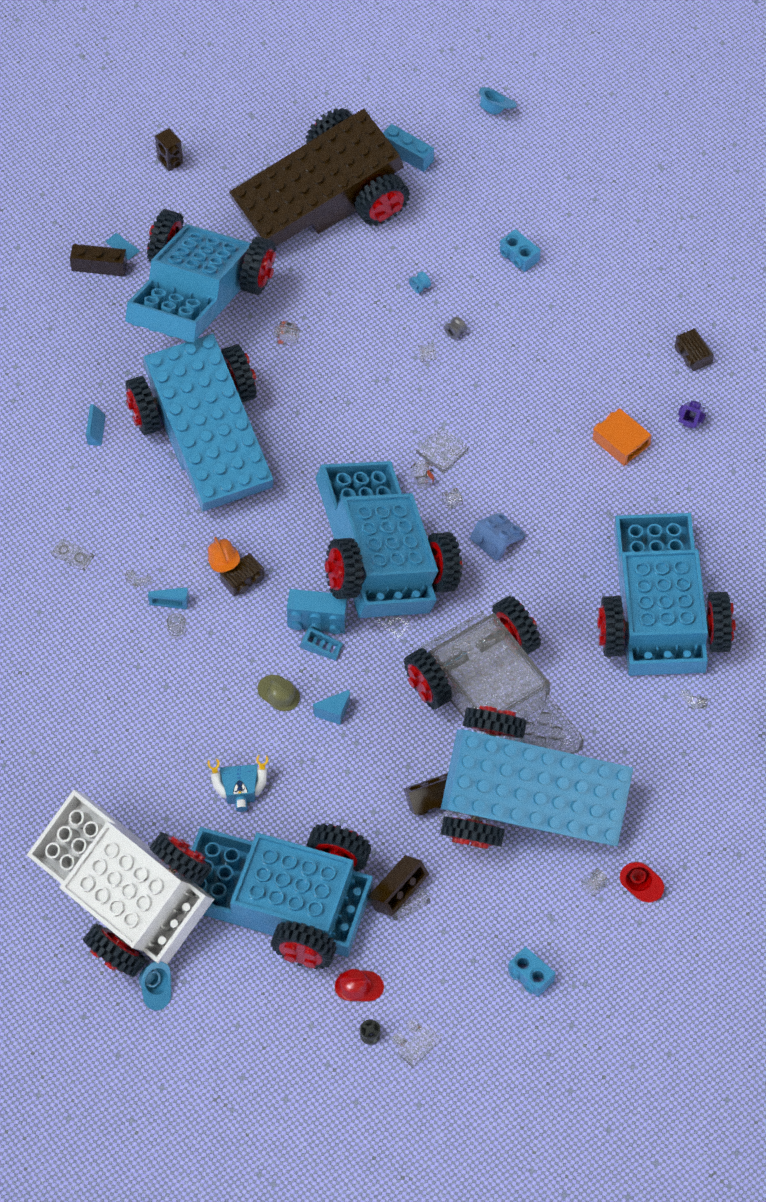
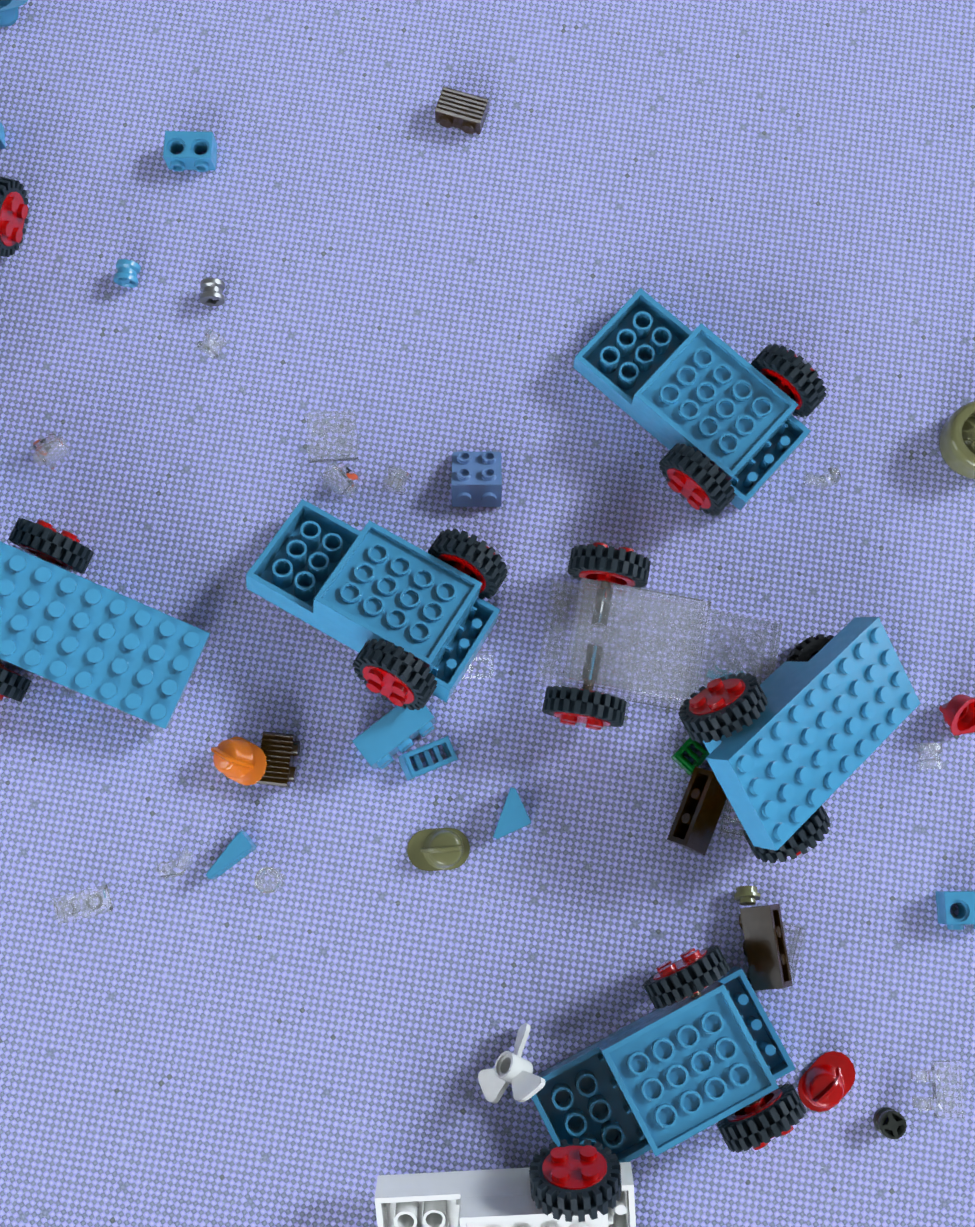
camera: 45 degrees left, 20 degrees up
(201, 816) = (513, 1070): none -> white piece
(239, 783) = (506, 990): torso -> none
(417, 853) = (747, 895): none -> olive plate
(621, 436) = (486, 264): orange brick -> none
(687, 418) = (536, 184): dark purple brick -> none

